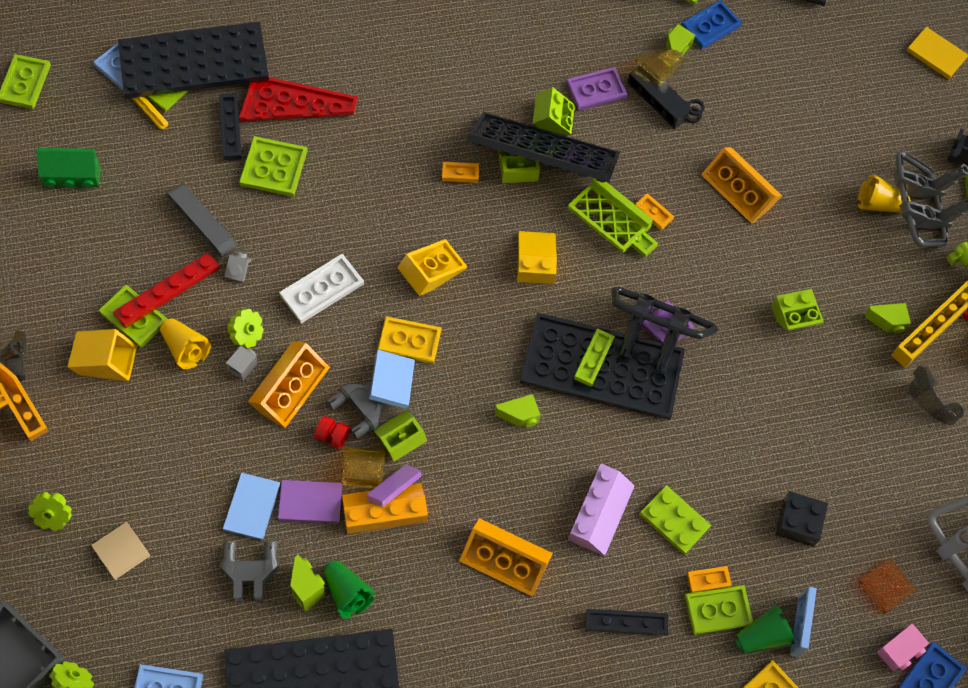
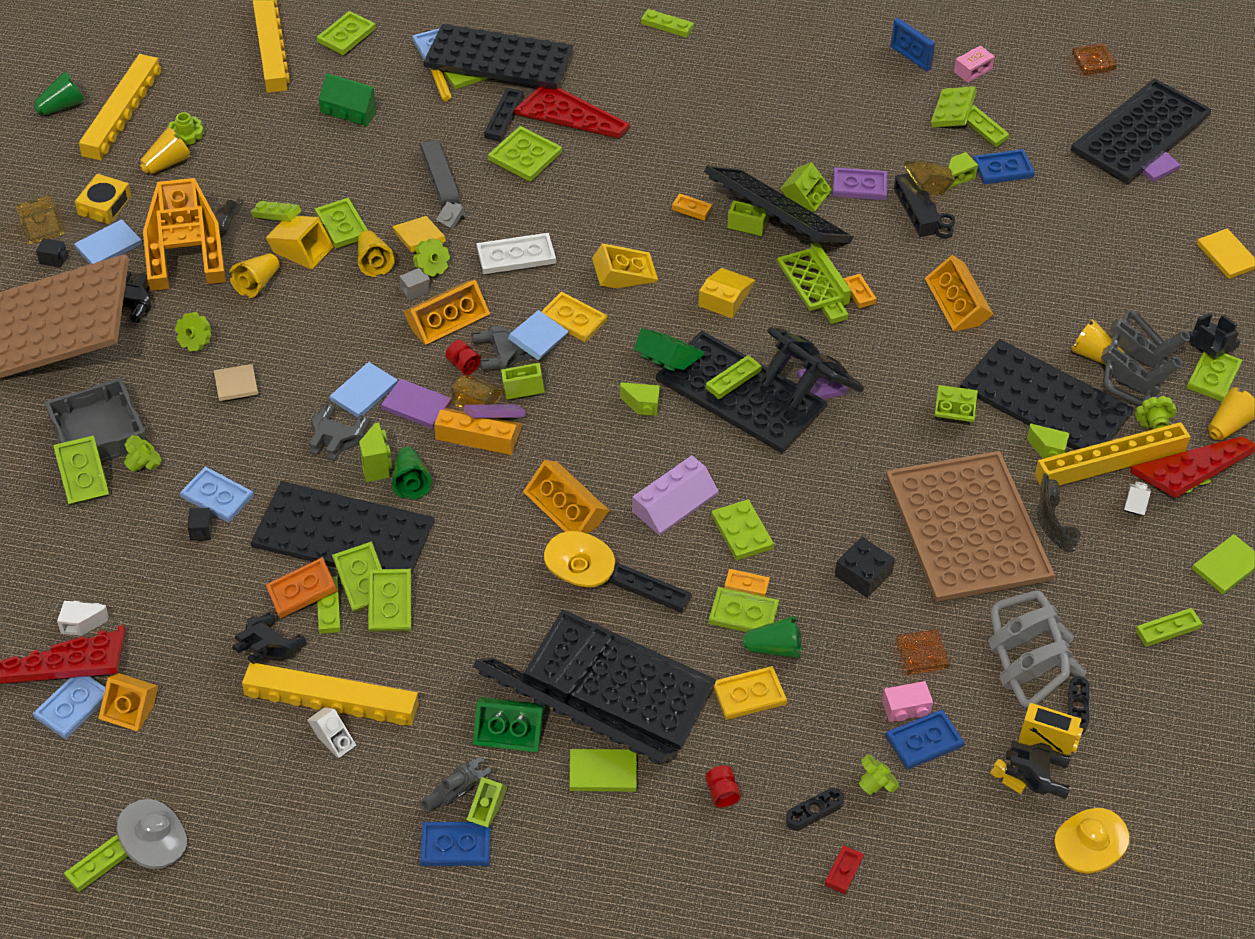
camera: 30 degrees right, 15 degrees down
(61, 329) = (275, 211): none -> lime plate
(77, 414) = (253, 274): none -> yellow cone
(166, 290) = (380, 211): red plate -> none
(217, 302) = (417, 230): none -> yellow tile
(520, 350) = (666, 350): none -> green slope
(555, 624) = (579, 559): none -> yellow hat
(803, 622) = (816, 641): light blue tile -> none
(862, 267) = (1046, 396): none -> black plate
(864, 434) = (969, 526): none -> medium nougat plate

